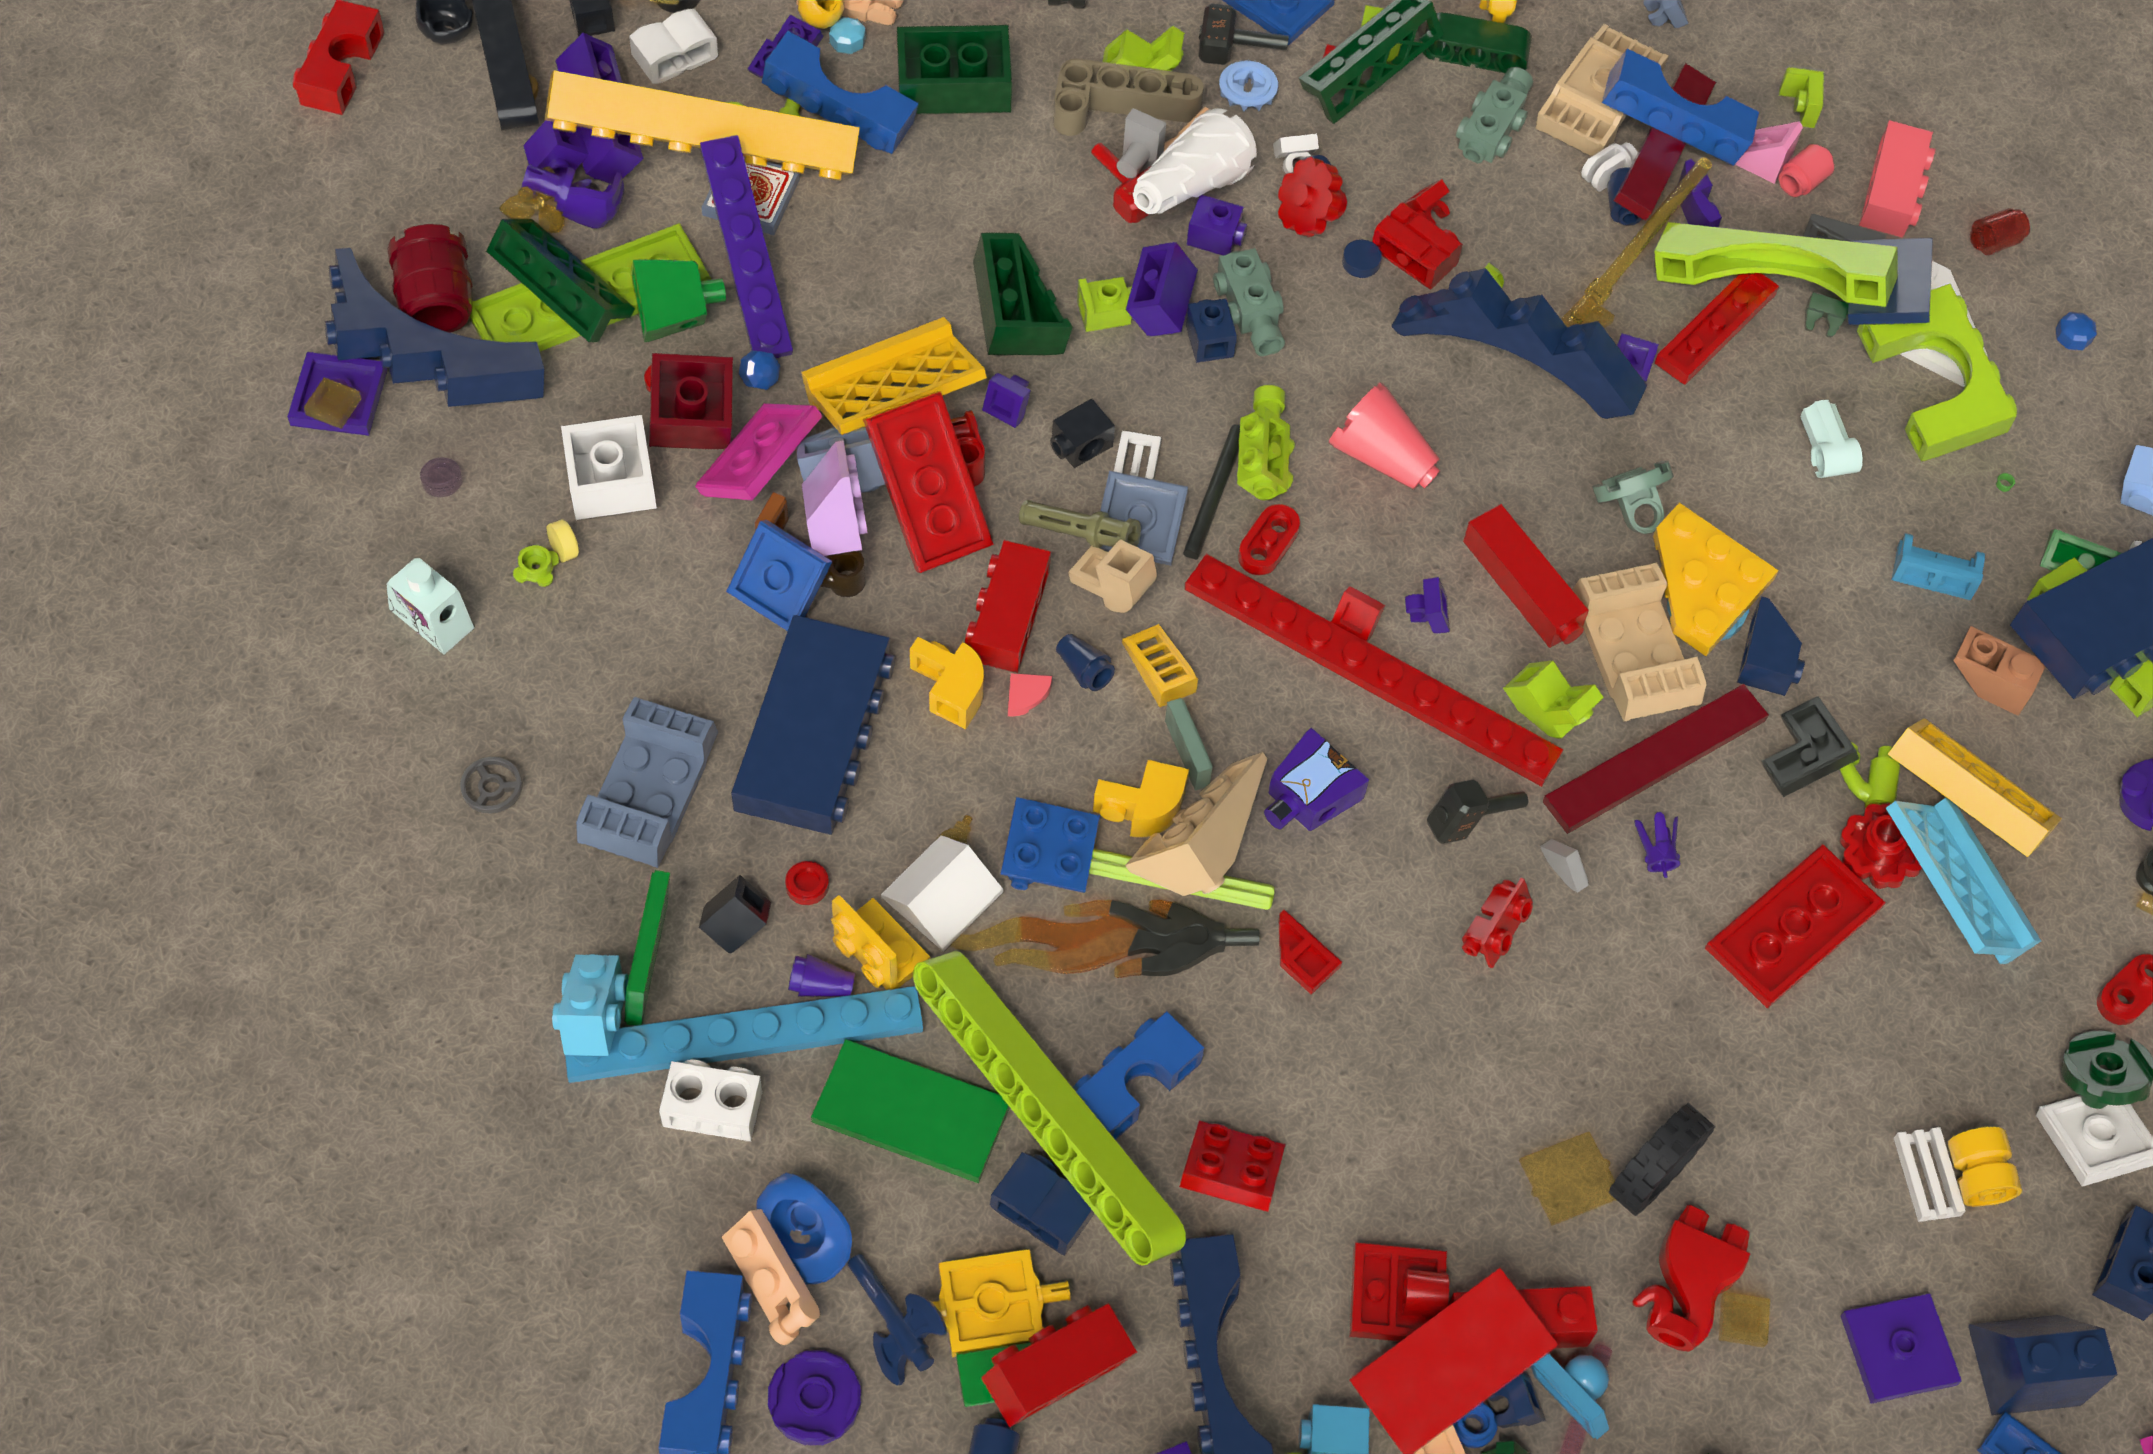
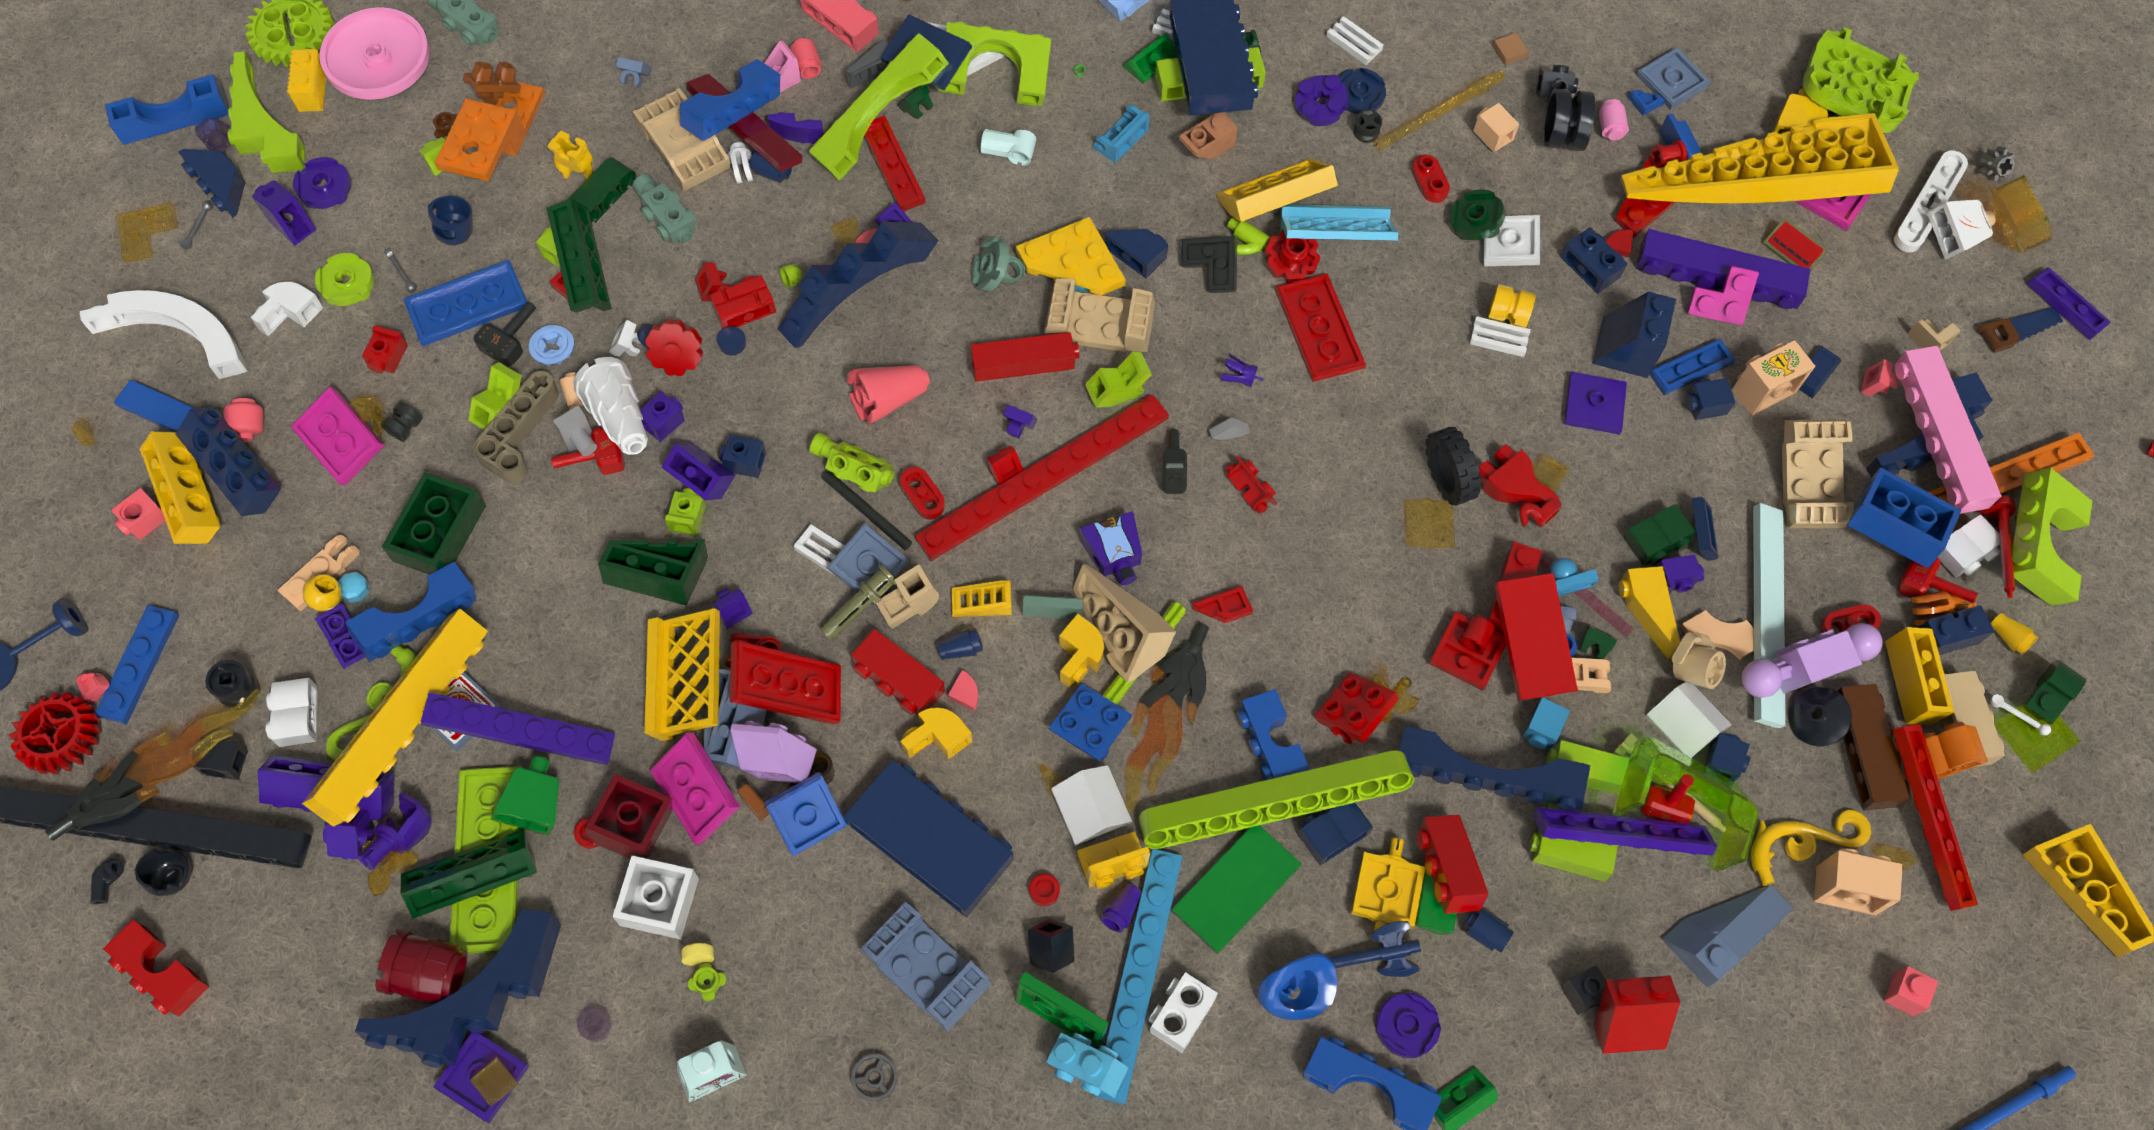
camera: 65 degrees left, 5 degrees up
(759, 369) = (621, 762): blue tile -> none
(771, 1276) = (1321, 1020): light nougat plate -> none
(1082, 433) = (784, 571): black brick -> none
(1241, 279) = (720, 421): sand green brick -> none
(1274, 1231) = (1405, 703): none -> clear yellow plant
(1601, 288) = (835, 212): clear yellow bar -> none
(1655, 758) = (1179, 347): dark red tile -> none
(1808, 93) = (749, 26): lime bracket -> none

